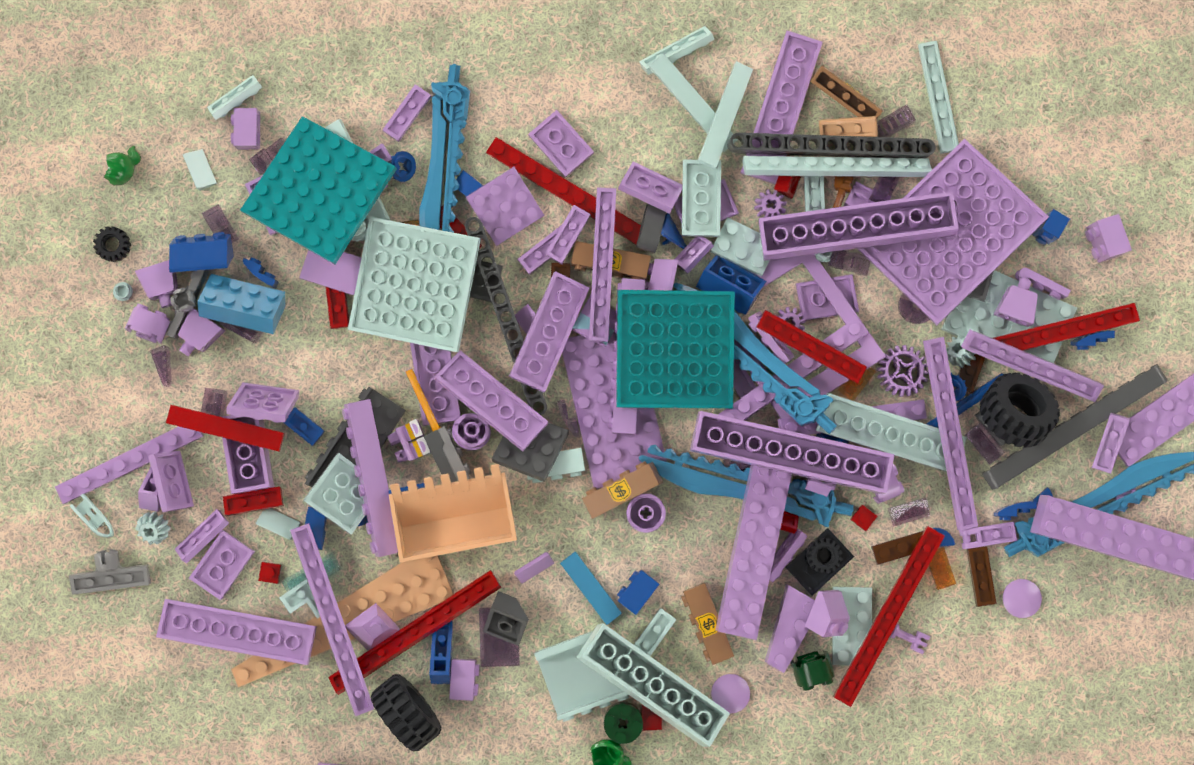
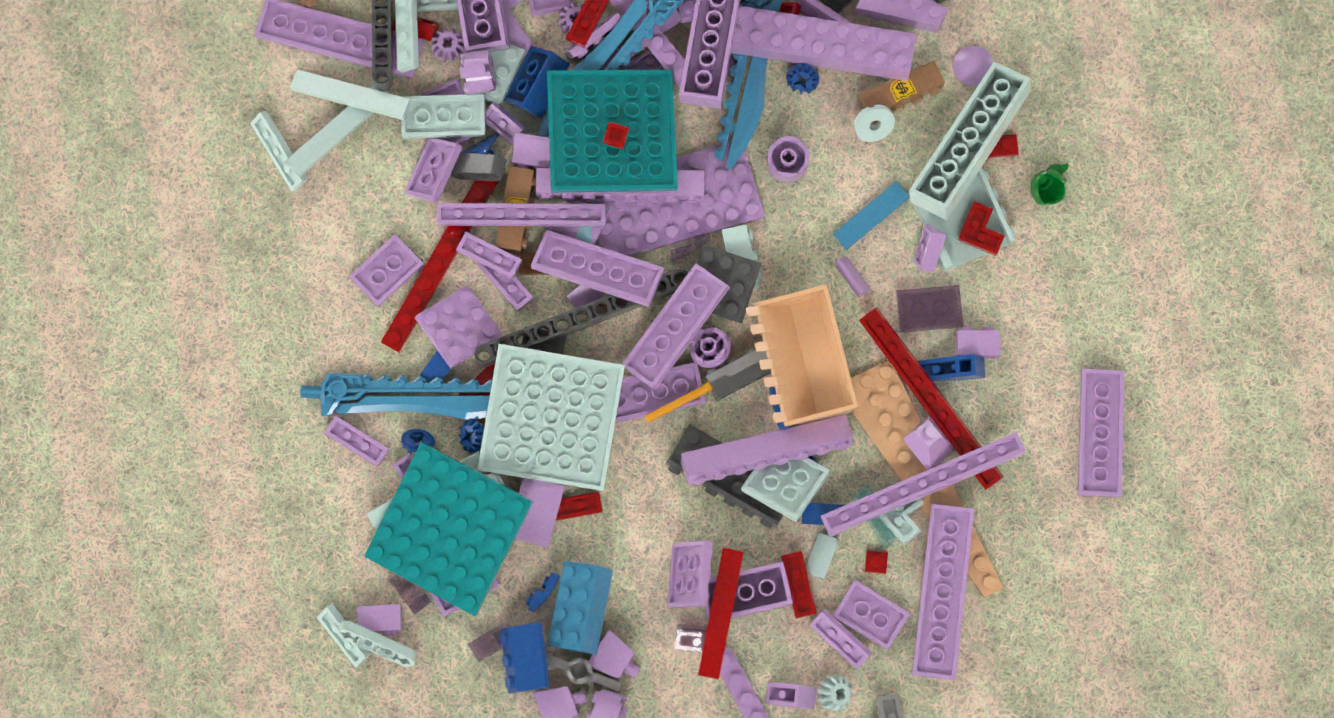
camera: 90 degrees left, 5 degrees down
(161, 358) = (647, 697): slope -> none
(171, 481) = (782, 674): lavender plate -> none
(199, 169) = (427, 670): light aqua slope -> none
(222, 124) = (377, 643): none -> light aqua beam
(249, 334) = (613, 601): clear purple slope -> none
(304, 426) = (716, 529): blue plate -> none
(406, 434) = (733, 414): lavender hips -> none
(406, 712) = (1017, 395): black tyre -> none
(411, 211) = (476, 439): none -> blue gear
(506, 619) = (910, 298): dark grey slope -> none
(553, 639) = (929, 248): none -> lavender slope
(568, 684) = (975, 231): none -> red plate
(618, 733) = (1011, 161): dark green brick -> none
(619, 491) = (765, 184): medium nougat brick -> none
(637, 592) = (872, 165): blue brick -> none
(655, 632) = (912, 144): light aqua plate -> none
(667, 351) = (616, 135): none -> red plate
(671, 587) = (878, 131): none -> light aqua tile
(728, 534) = (806, 71): none -> blue gear
(738, 229) = (478, 71): none -> lavender brick

